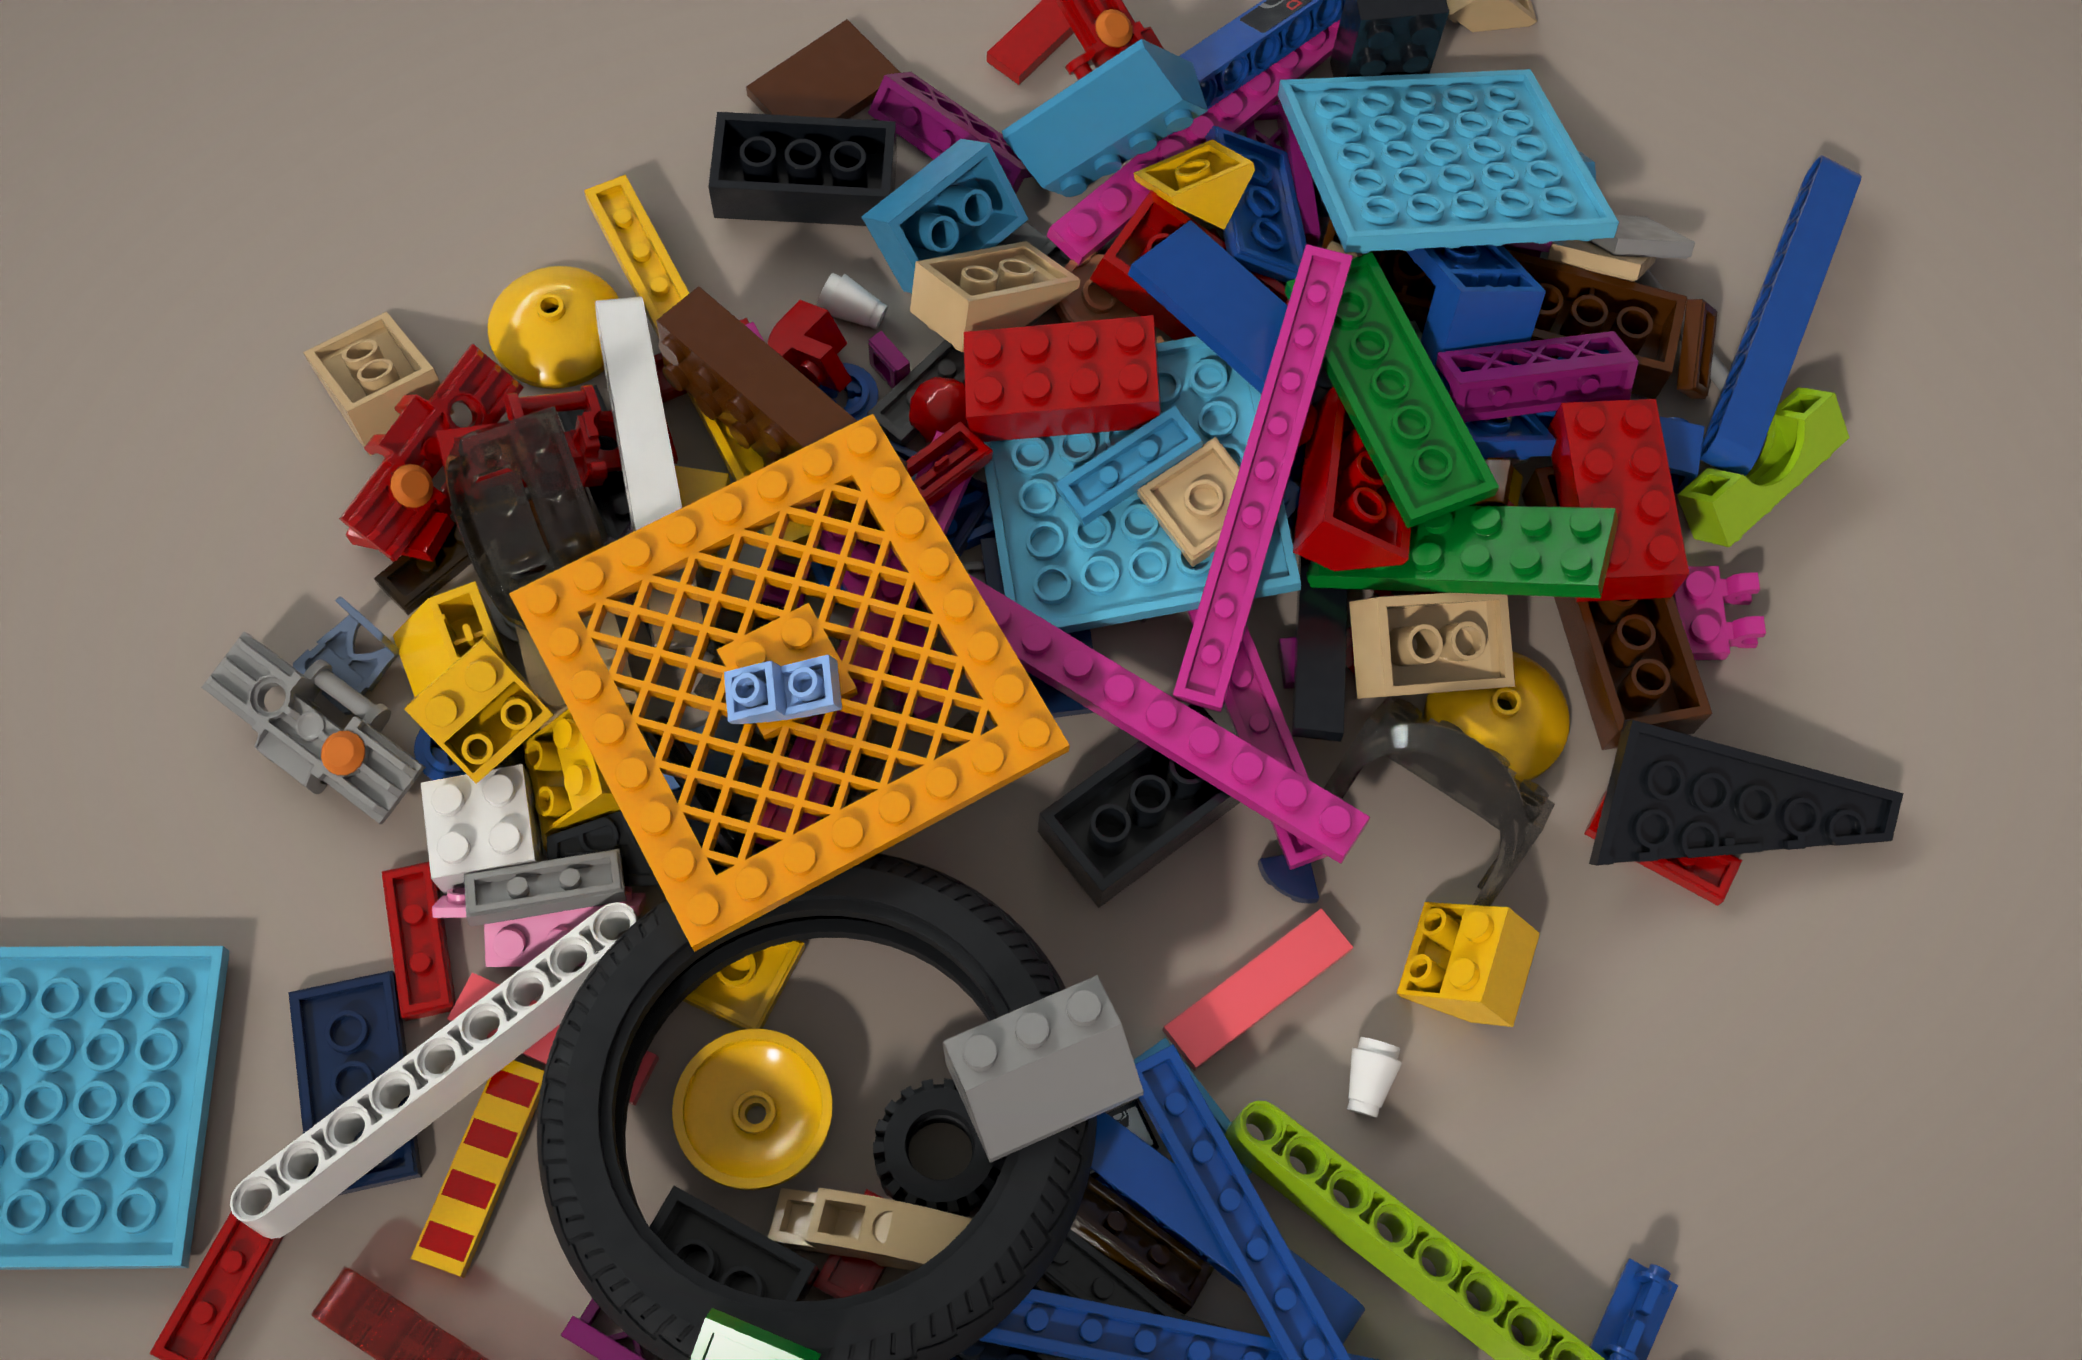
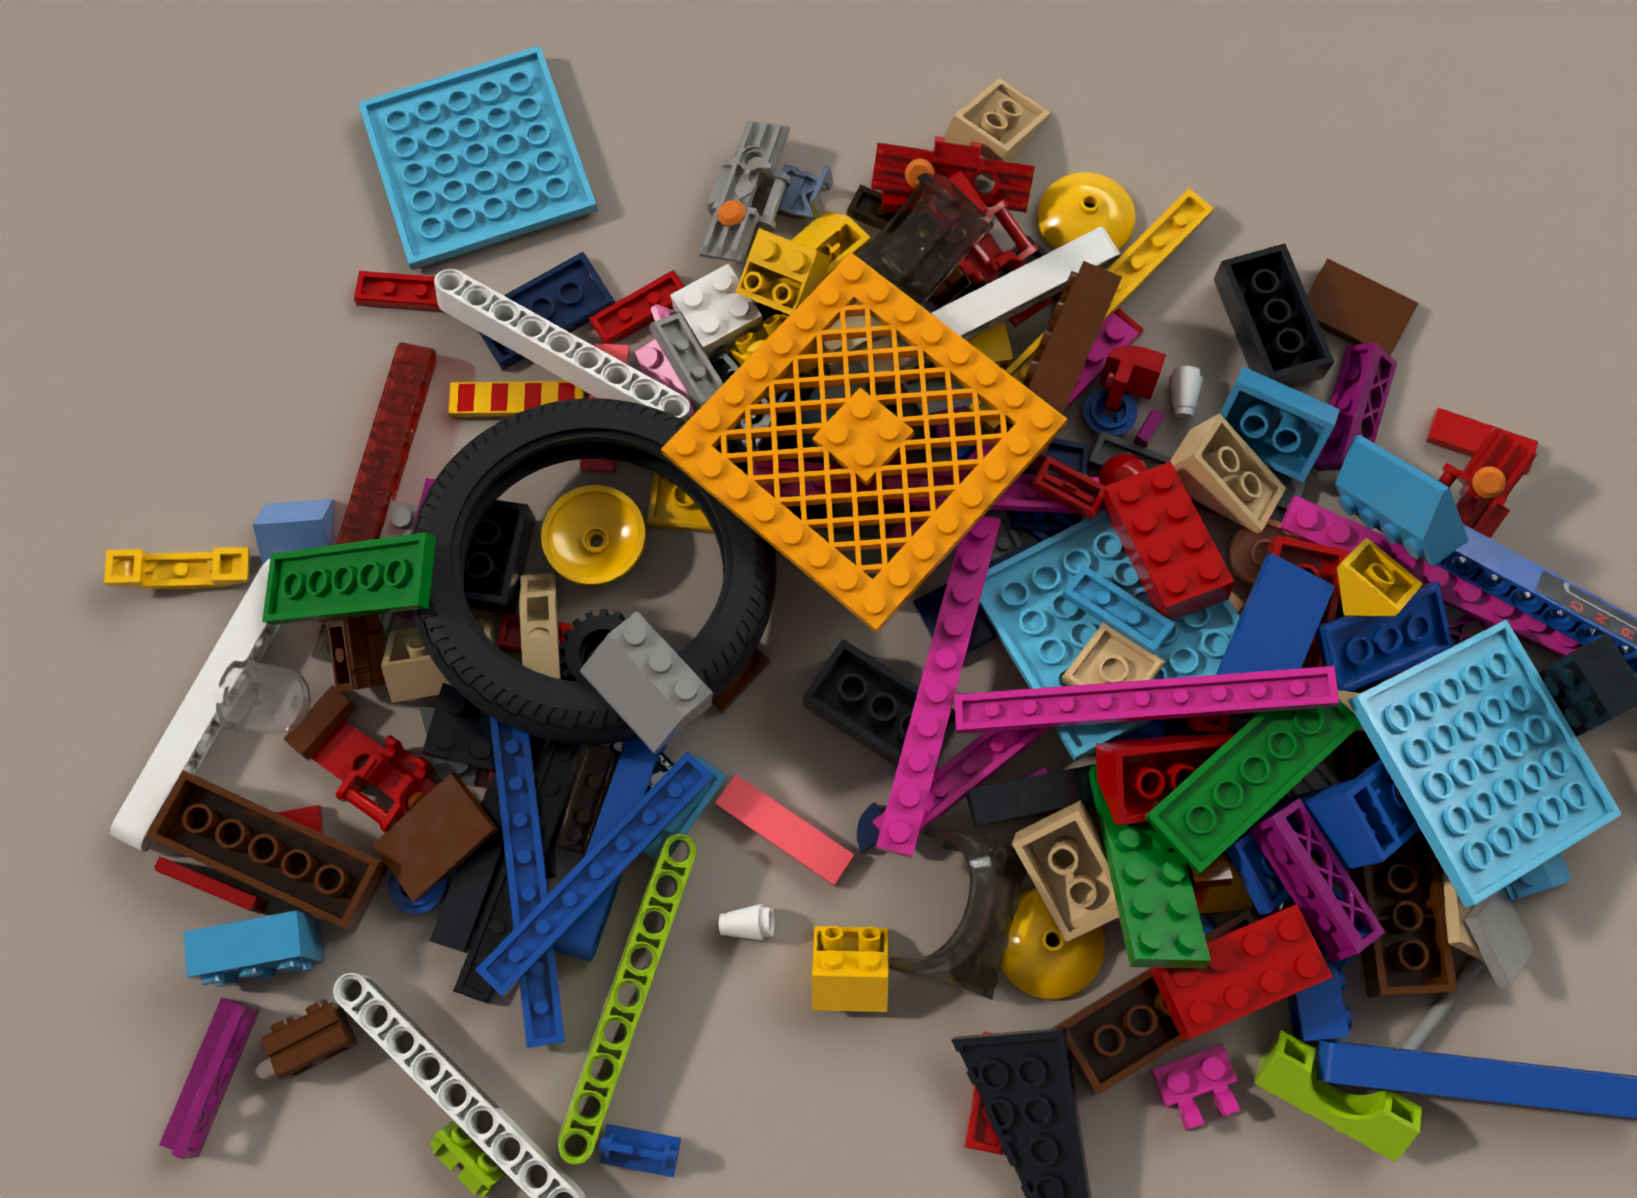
camera: 80 degrees right, 5 degrees up
(782, 692) = (841, 435): light blue slope -> none
(1697, 349) = (1420, 1015): reddish brown tile -> none

